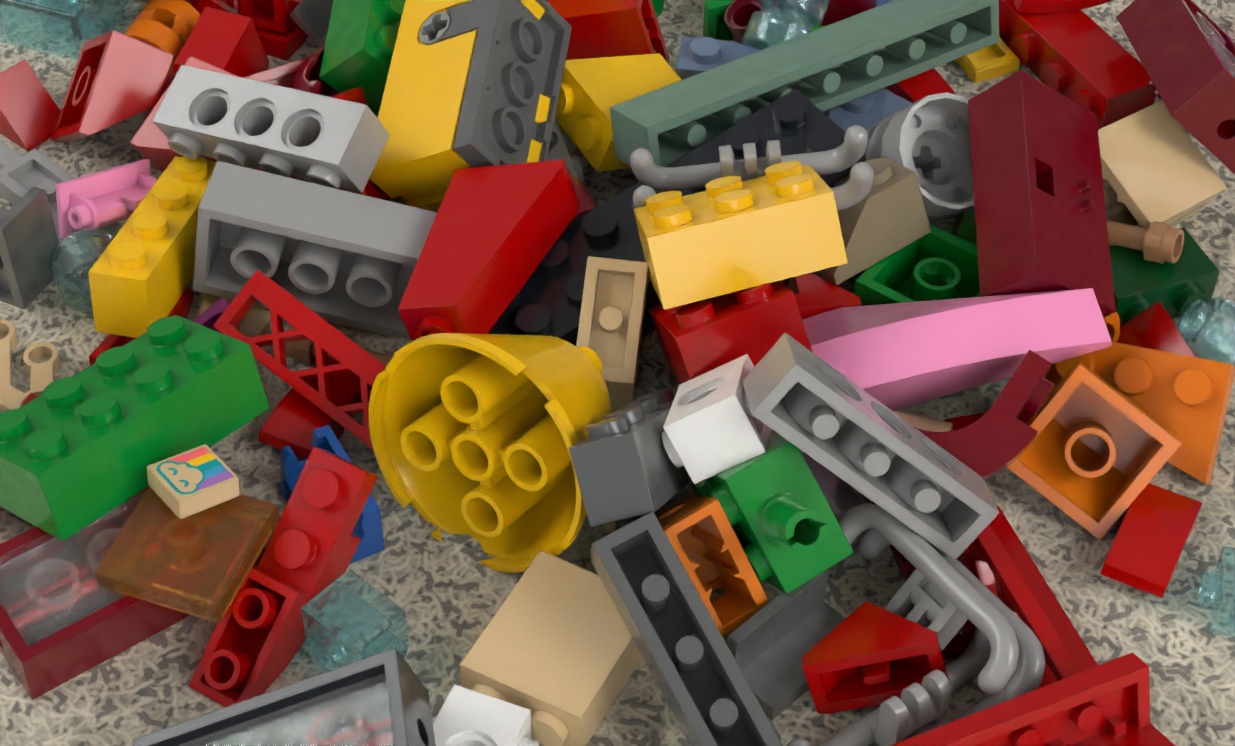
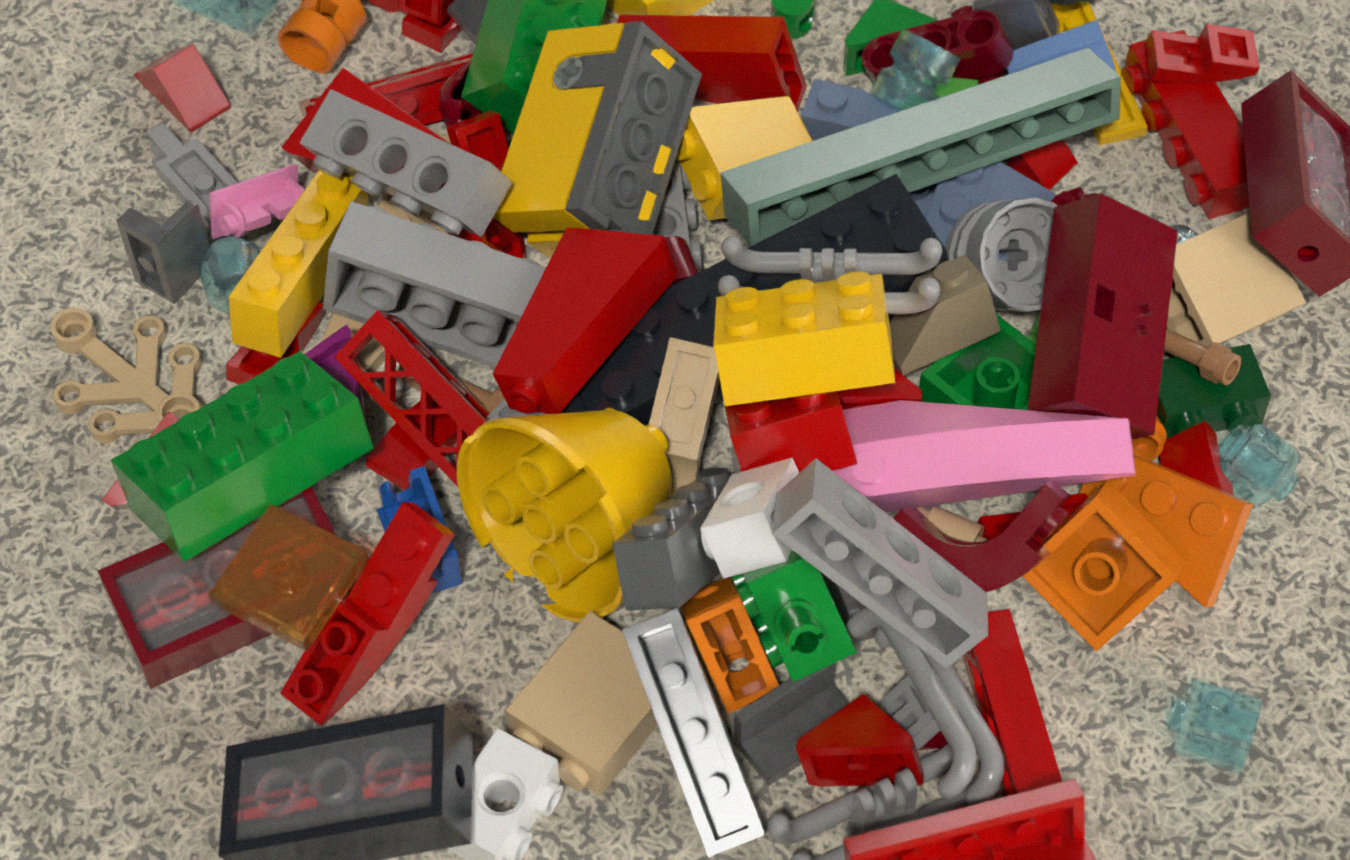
camera: 10 degrees right, 10 degrees up
(111, 83) = (269, 85): slope -> none
(193, 481) = (296, 521): tan tile -> none
(225, 42) = (377, 48): red slope -> none
(352, 623) = (424, 662): clear light blue brick -> none
(1151, 539) = (1140, 658): red slope -> none

